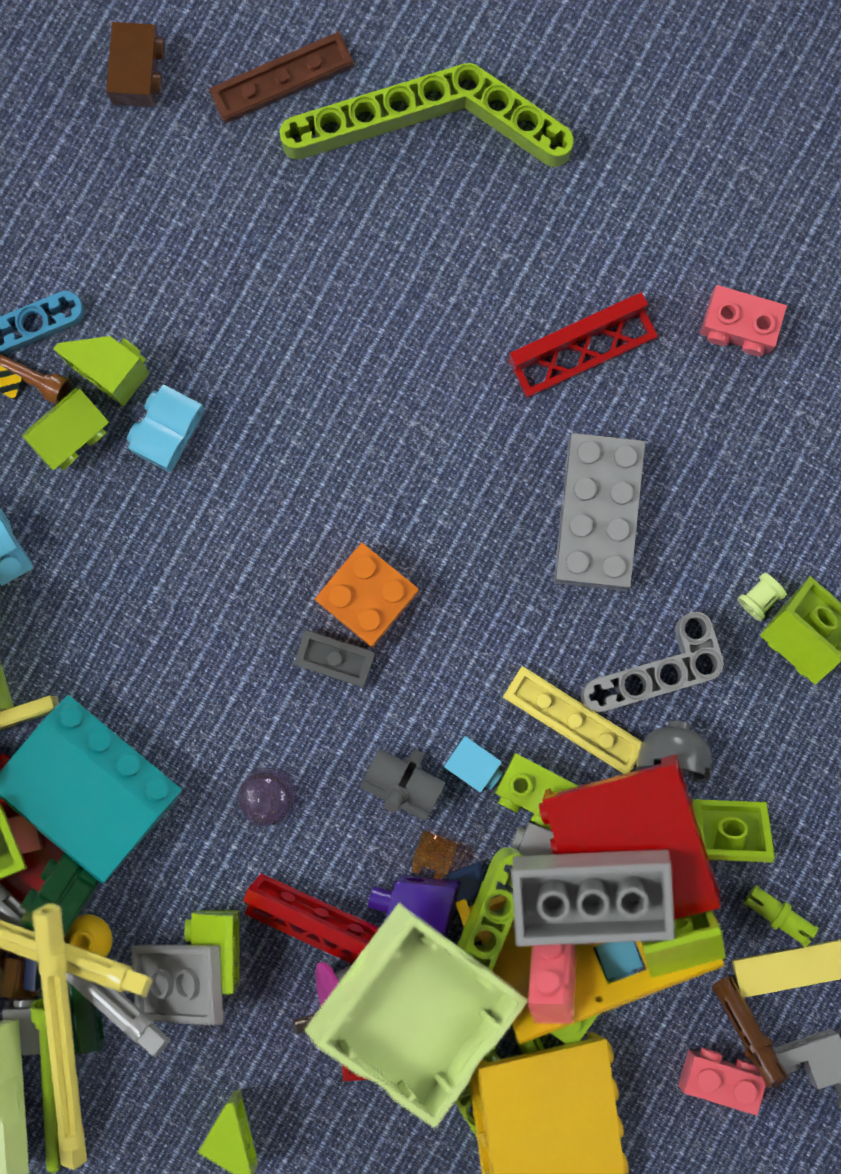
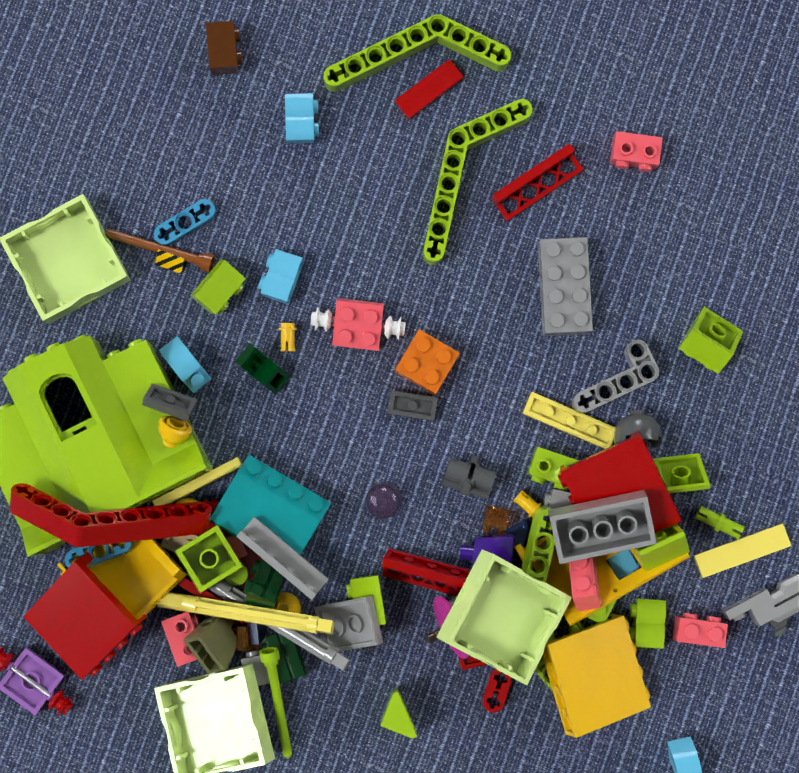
camera: 15 degrees left, 0 degrees up
(24, 880) = (238, 577): none -> lime tile
(60, 1036) = (281, 667): light yellow piece -> none
(89, 865) = (282, 558): none -> light grey fence
(106, 364) = (237, 242): lime slope -> none
(111, 565) = (262, 369): none -> dark green brick
(160, 522) = (287, 336): none -> yellow pin
(234, 190) = (300, 118): none -> medium azure brick
(270, 519) = (357, 324): none -> coral plate
(281, 77) = (317, 41): copper tile -> none
(380, 1122) = (491, 687): none -> red beam
(440, 177) = (429, 89): none -> red tile
(458, 312) = (454, 174): none -> lime beam
(474, 765) = (512, 458): medium azure brick -> none
(486, 837) = (527, 503): none -> yellow pin
(644, 1055) = (648, 623): none -> lime brick
(757, 1046) = (715, 601): reddish brown pin -> none
(762, 596) = (676, 324): yellowish green bush -> none

